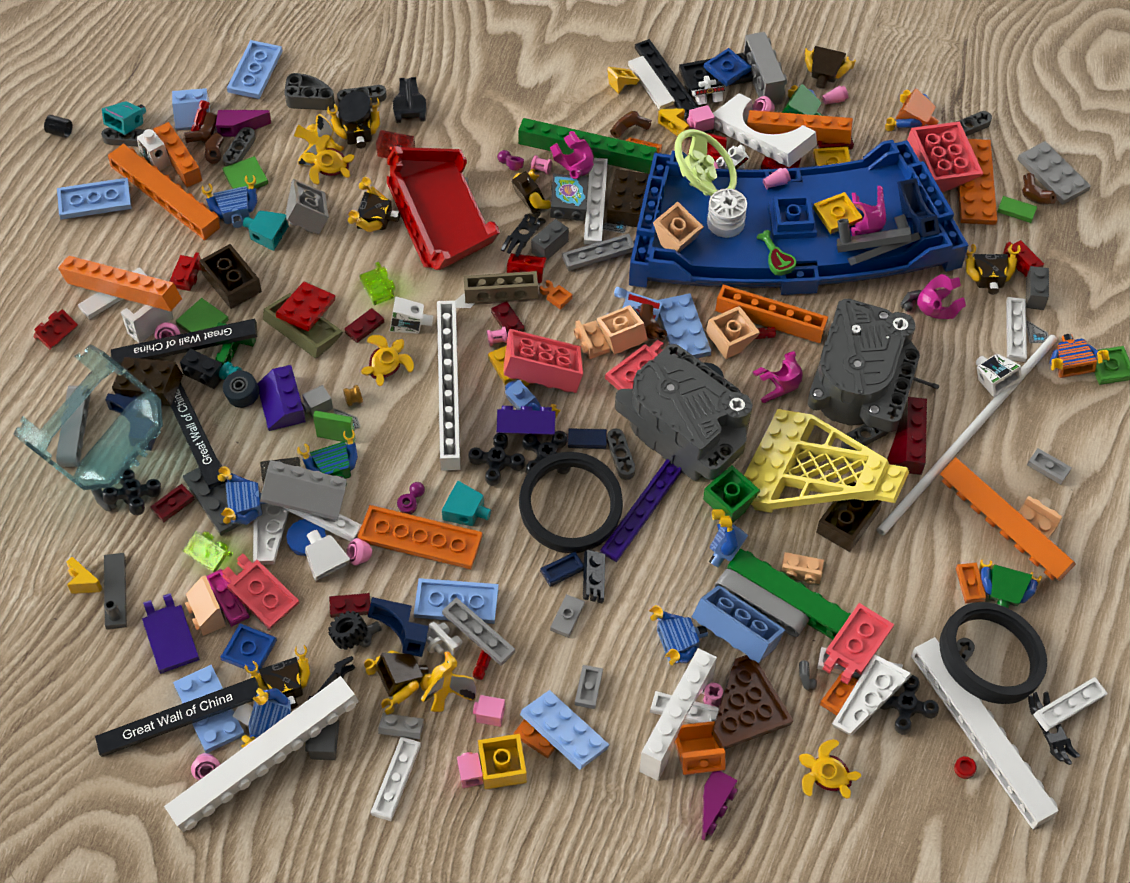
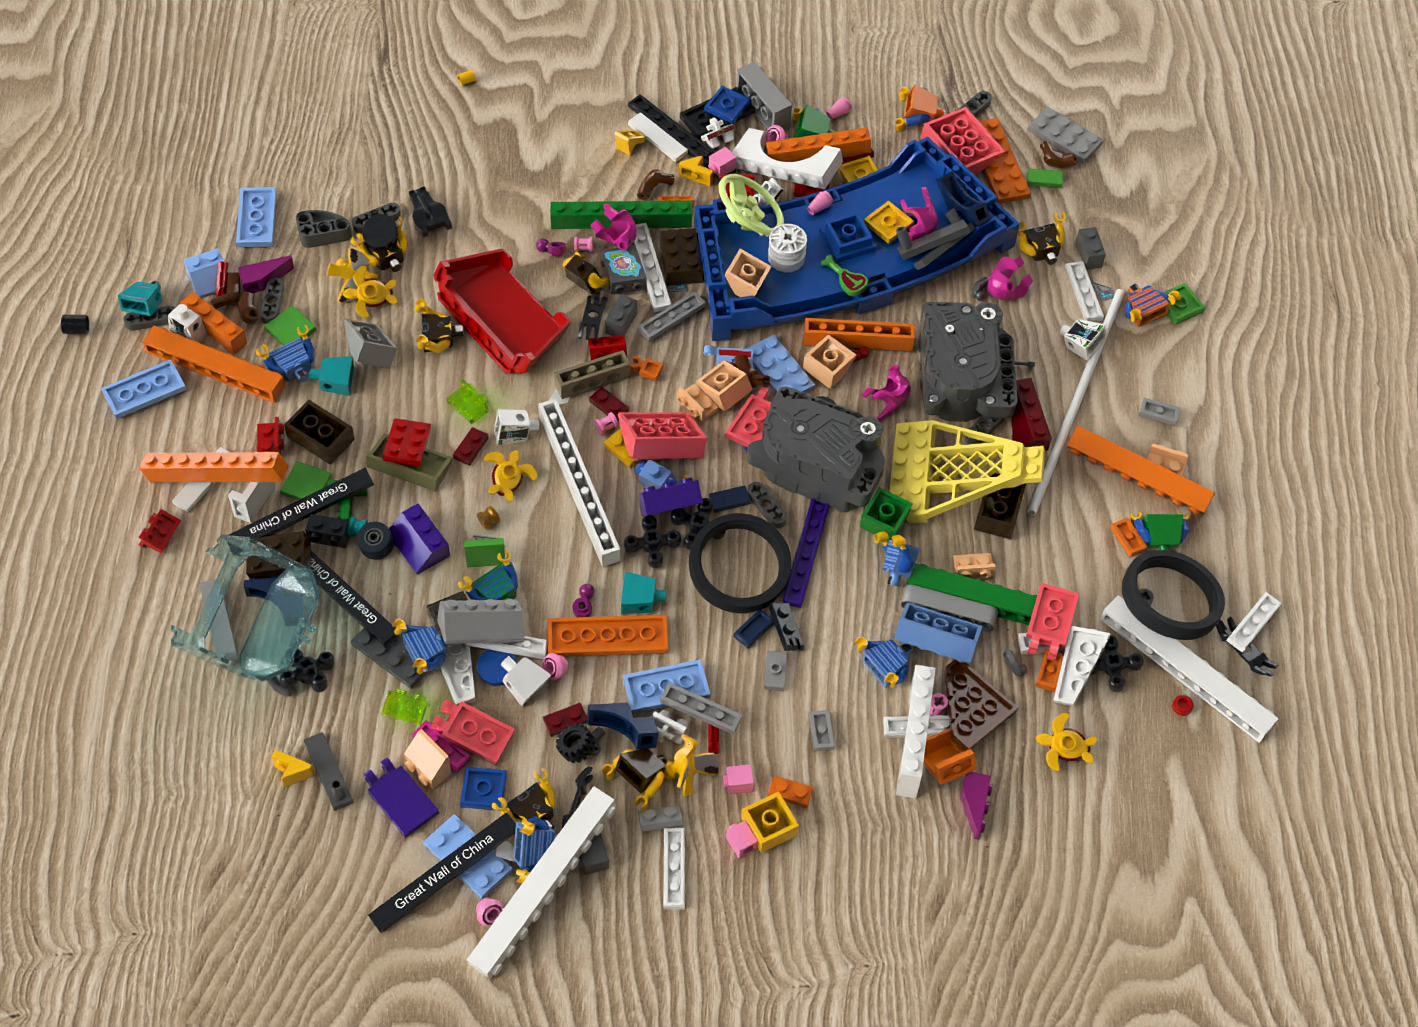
camera: 20 degrees left, 0 degrees up
(166, 330) = (276, 502): bright pink cone -> none
(172, 503) = (351, 670): dark red plate -> none
(318, 400) = (456, 532): light grey brick -> none
(387, 141) = (428, 258): clear red brick -> none
(564, 729) = (814, 776): light blue plate -> none
(827, 65) = (820, 80): dark brown torso -> none
(1025, 257) = (1071, 223): red bracket -> none

